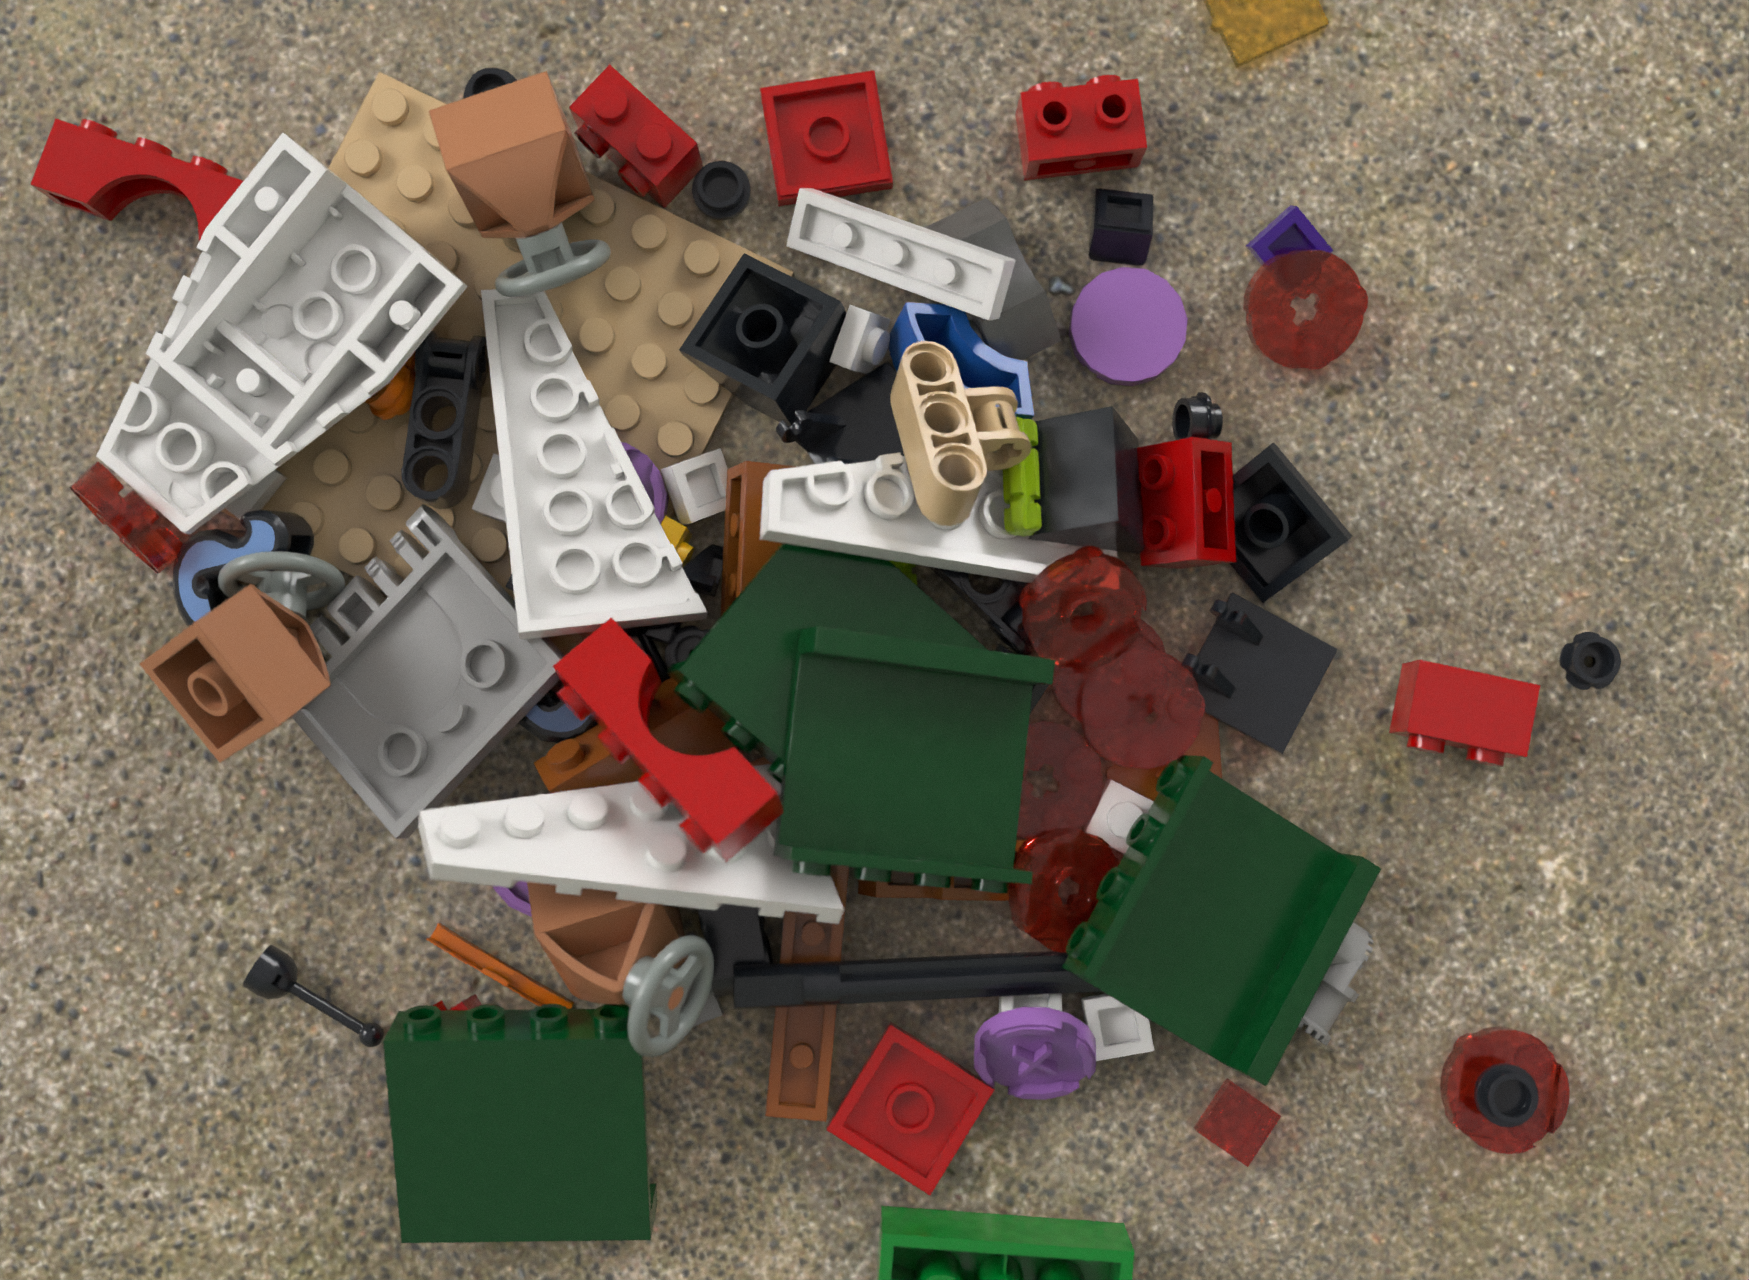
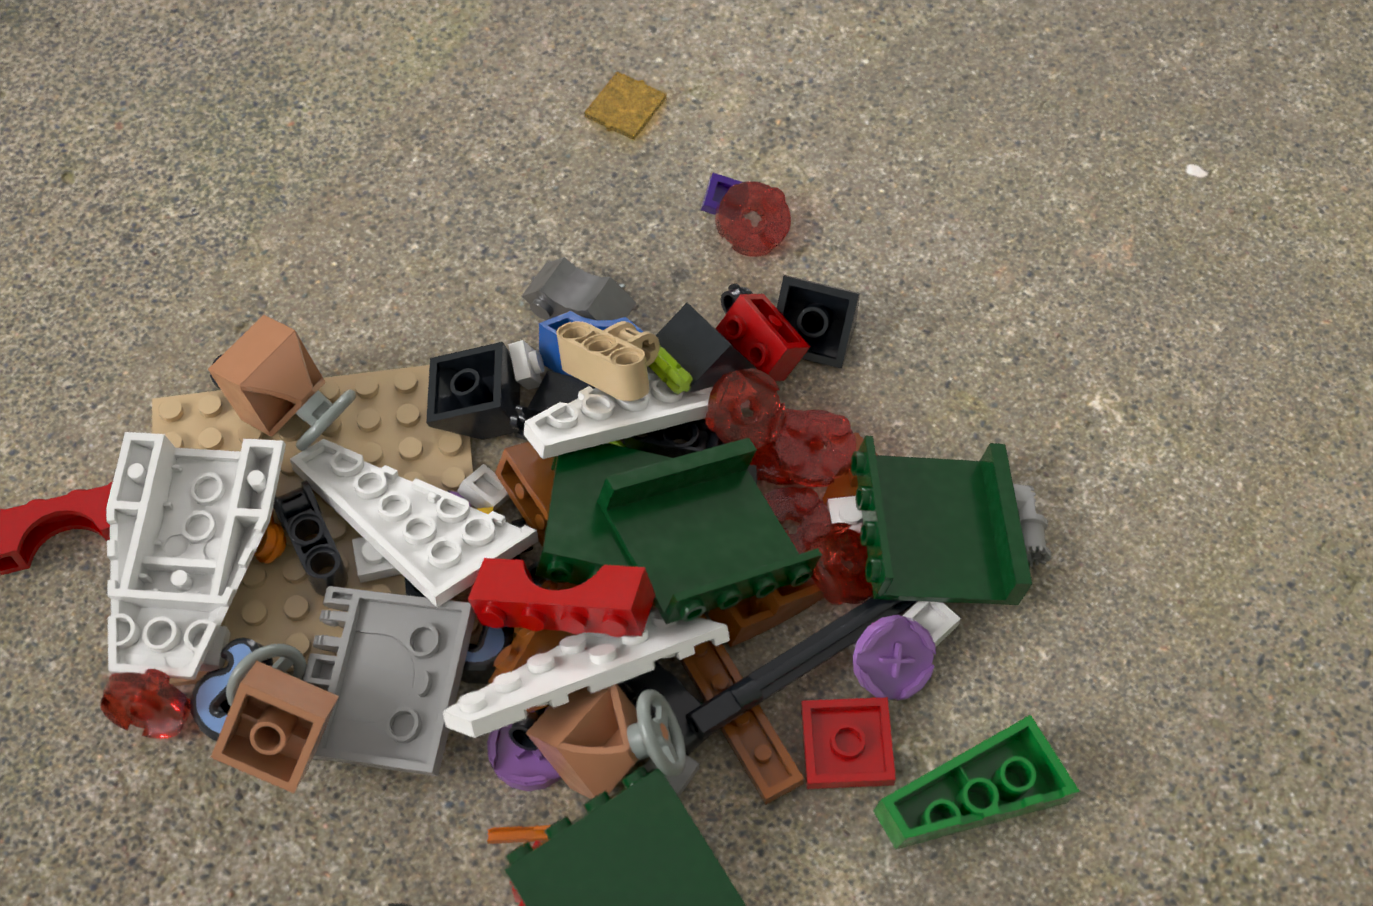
camera: 30 degrees left, 25 degrees down
(636, 137) = (334, 339): red brick -> none
(721, 190) = (393, 343): black plate -> none
(827, 136) = (436, 289): red tile -> none
(901, 253) = (517, 306): white plate -> none
(1080, 127) = (572, 205): red brick -> none
(1121, 227) = (628, 240): black slope -> none
(1127, 326) = (666, 281): medium lavender tile -> none
(1237, 1122) = (1037, 633): clear red tile -> none
(1258, 671) = (866, 396): black plate -> none
(1465, 711) = (985, 347): red brick -> none
(1496, 1045) = (1161, 542): clear red plate -> none
(1506, 1095) = (1163, 513): black plate -> none
(1605, 661) = (1032, 284): black plate -> none

